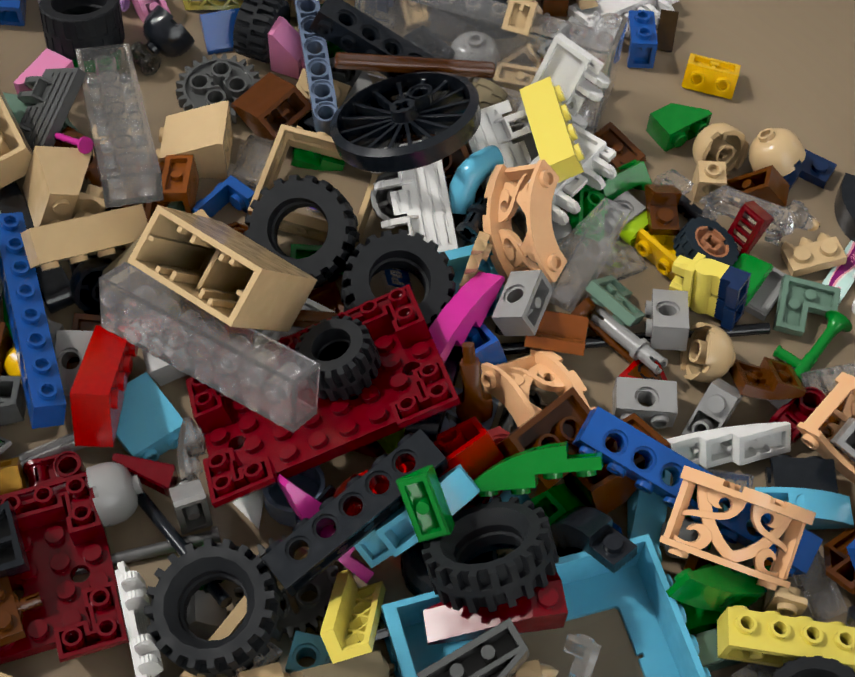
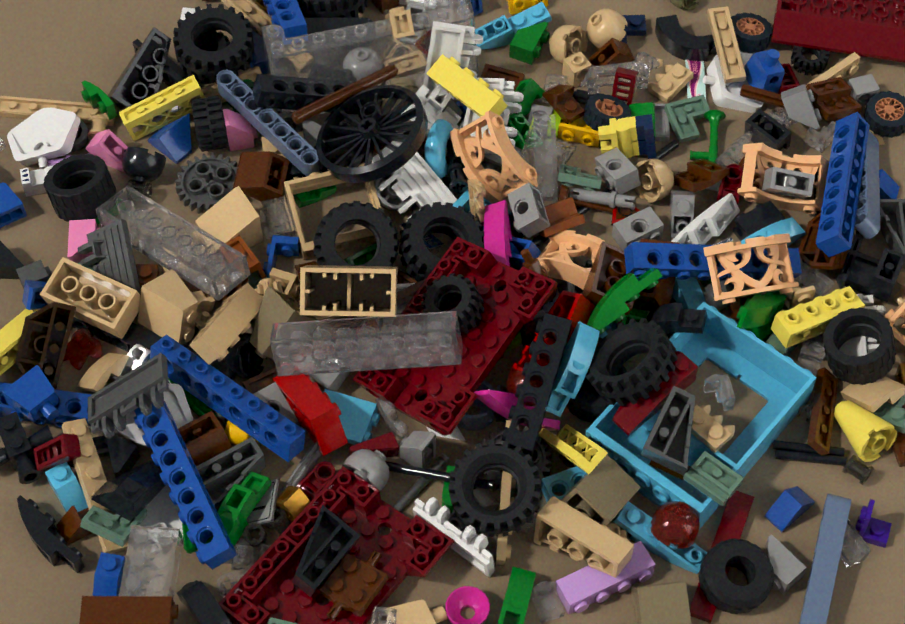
camera: 30 degrees left, 0 degrees up
(83, 144) = (170, 268): dark pink pin -> none
(426, 504) = (577, 354): green slope -> none
(651, 95) = (502, 30): none -> medium azure slope

